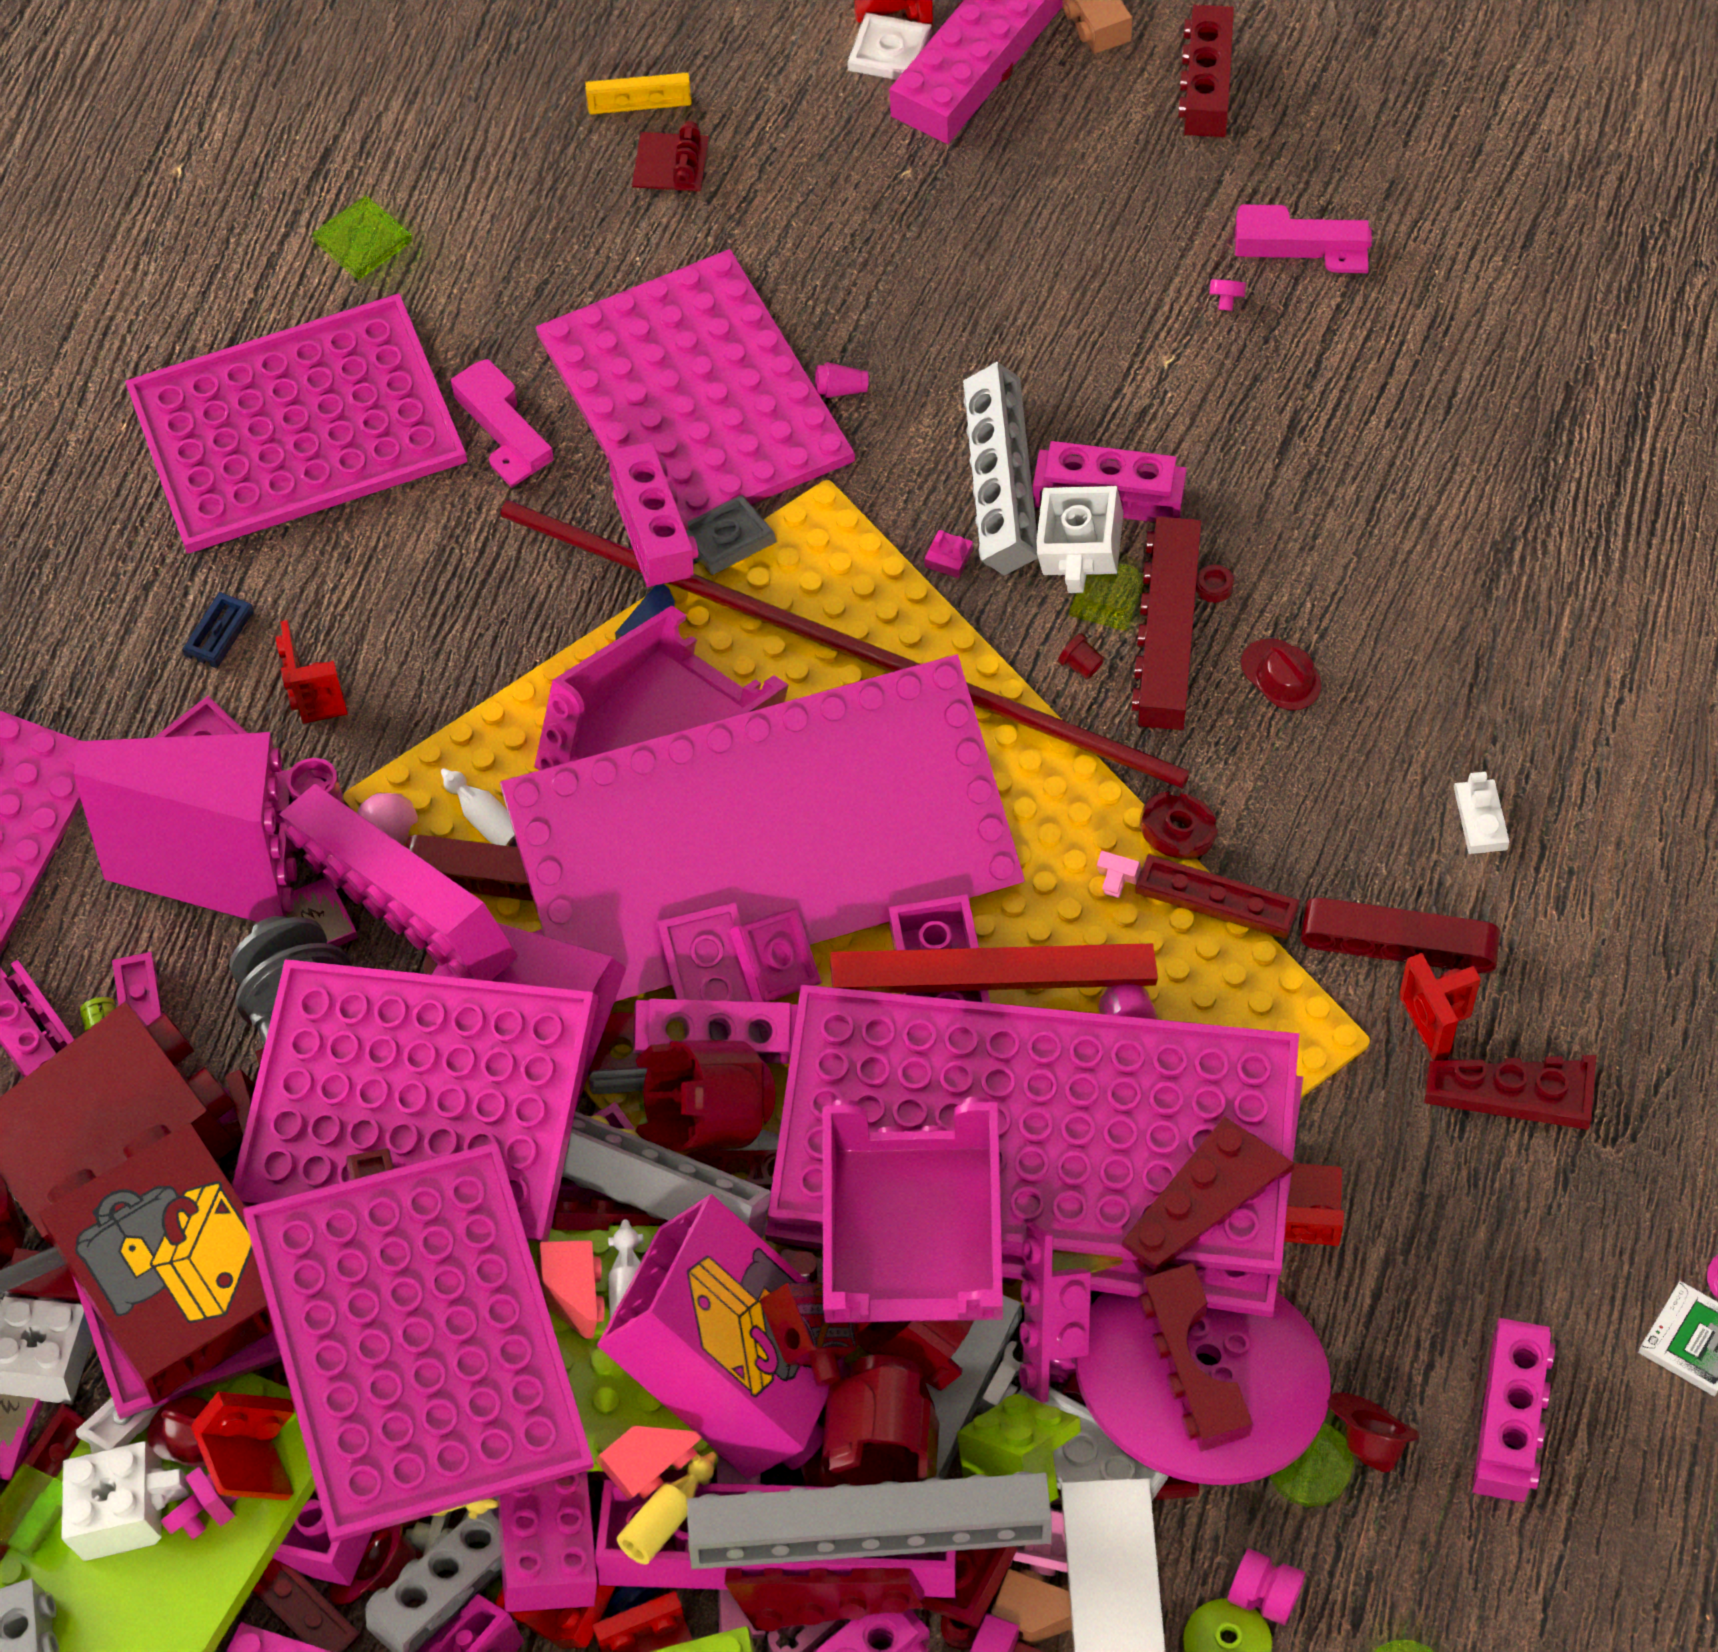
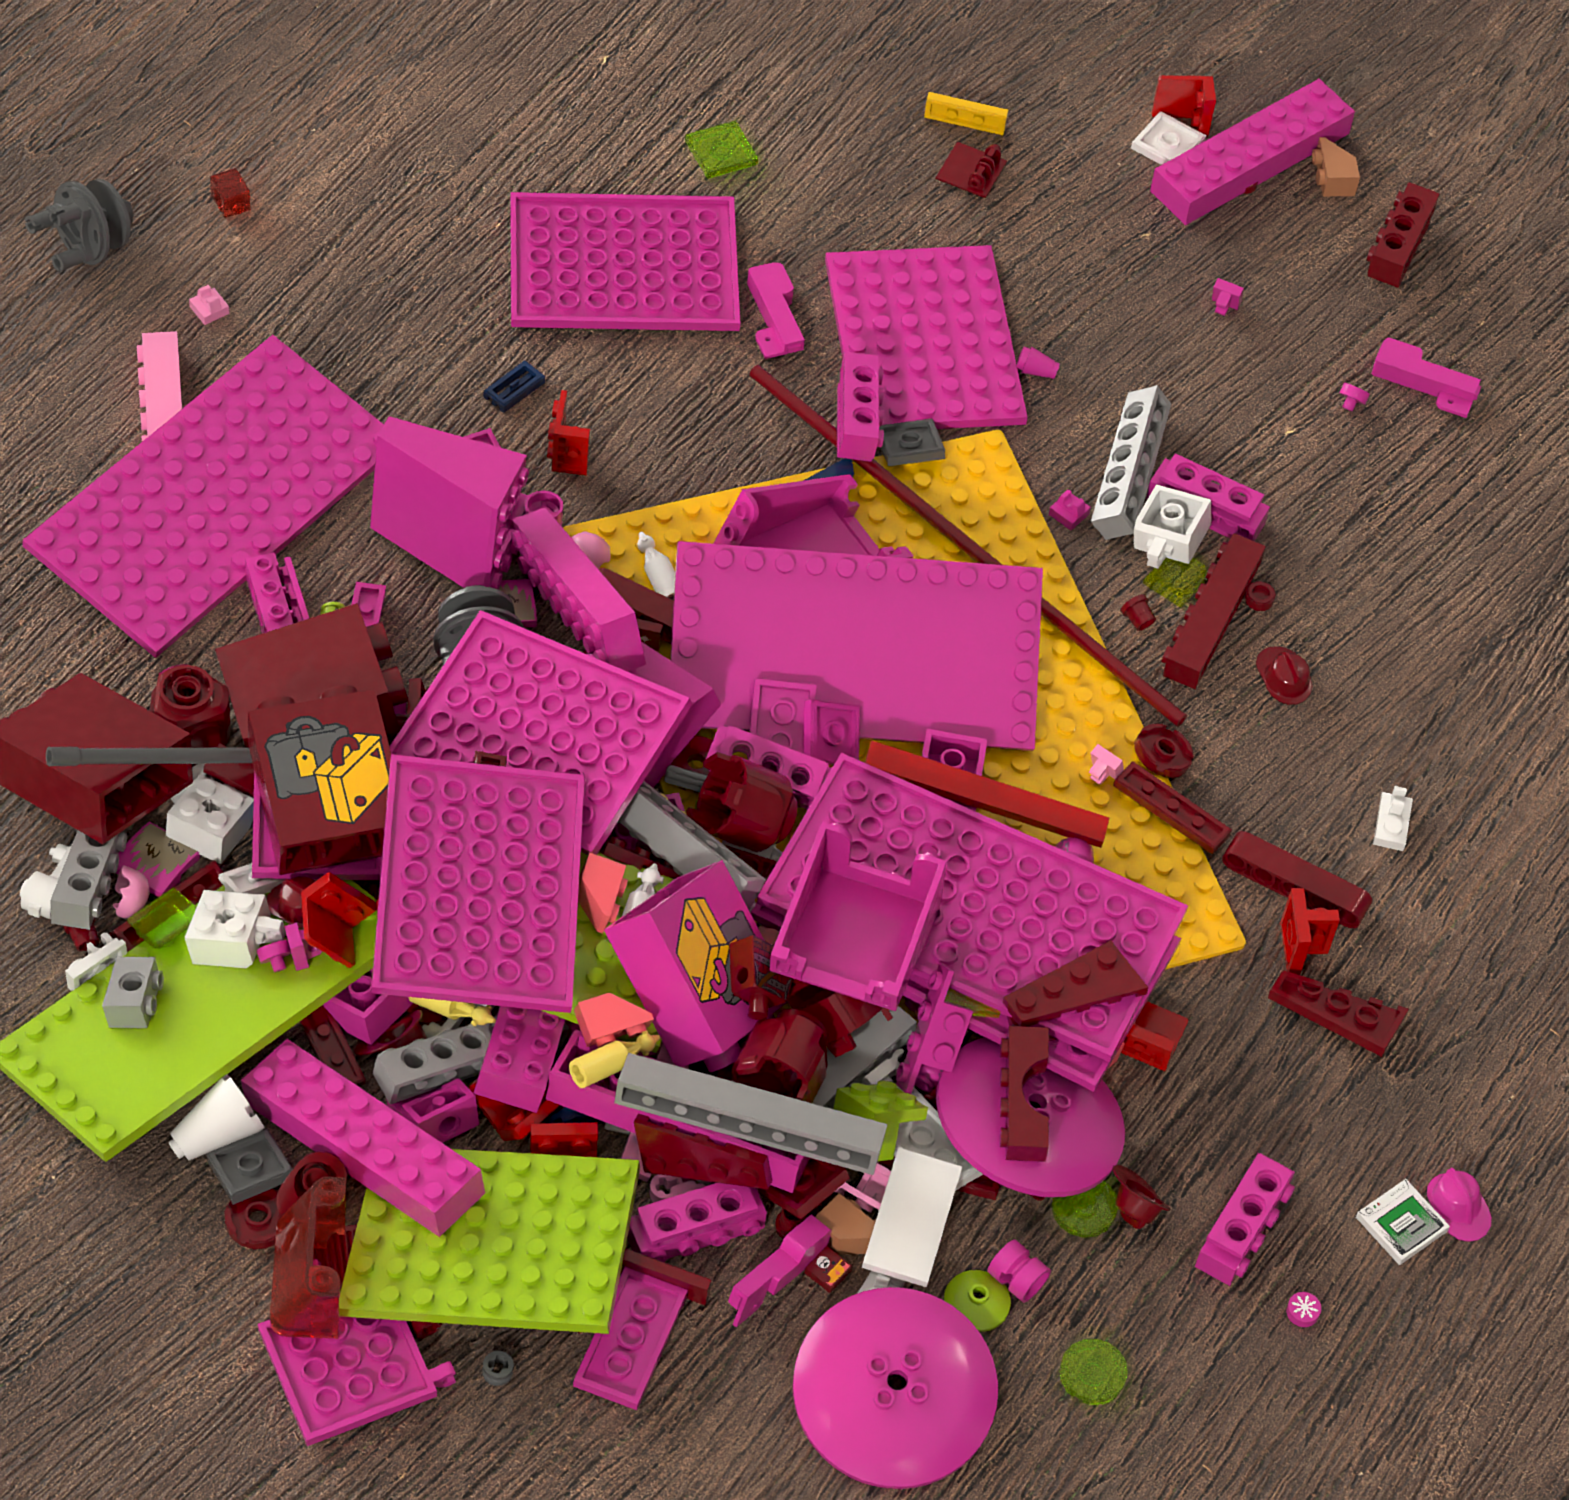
camera: 10 degrees right, 5 degrees down
(500, 900) = (650, 633): none -> dark red tile
(1031, 217) = (1226, 296): none -> dark pink tile
(1625, 1501) = (1303, 1309): none -> dark pink tile

